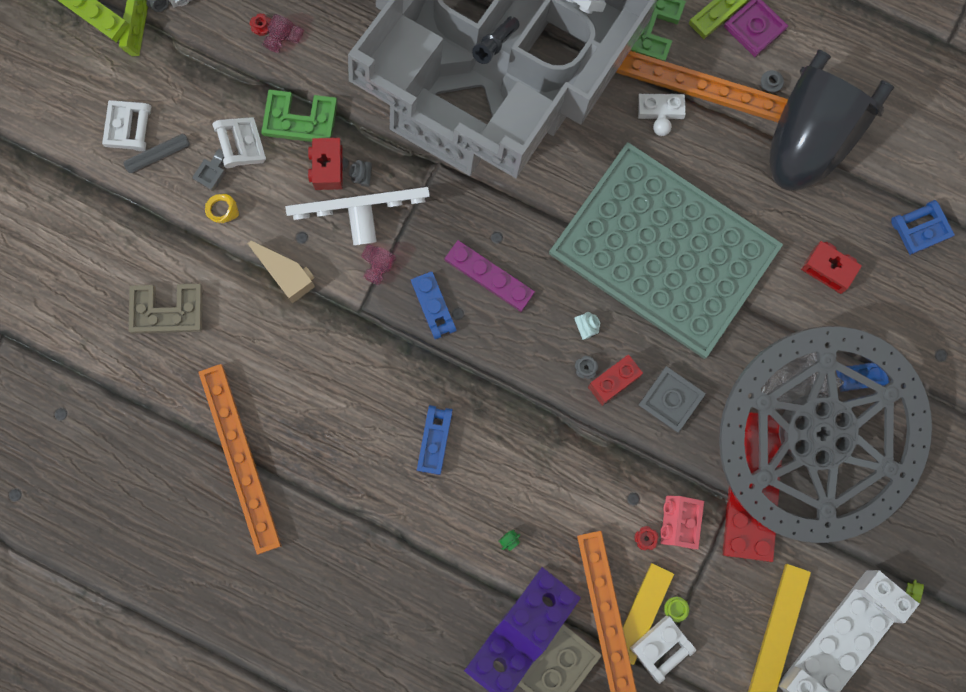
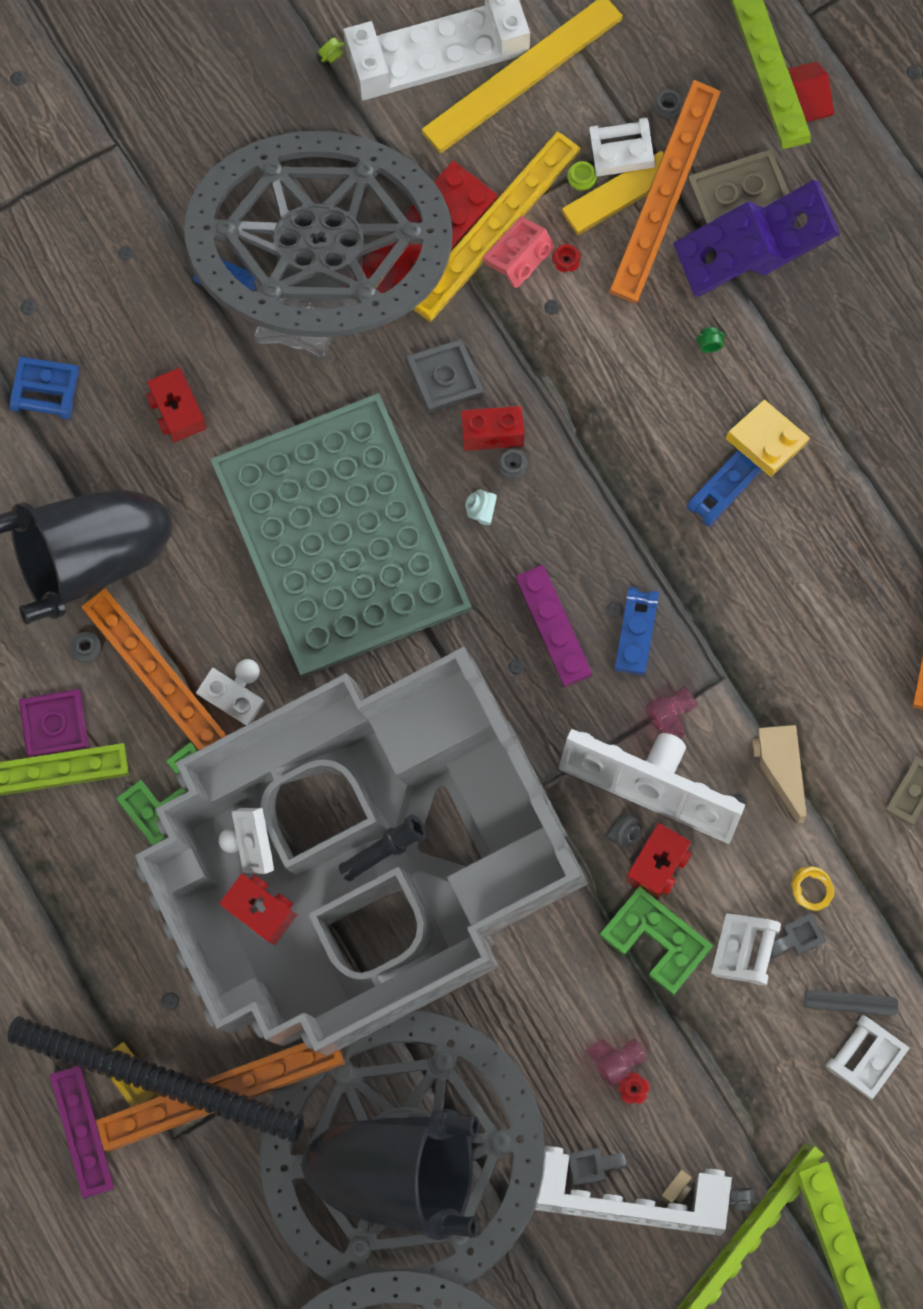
camera: 145 degrees left, 5 degrees down
(426, 490) = (767, 438): none -> yellow plate
(711, 541) = (504, 212): none -> yellow tile

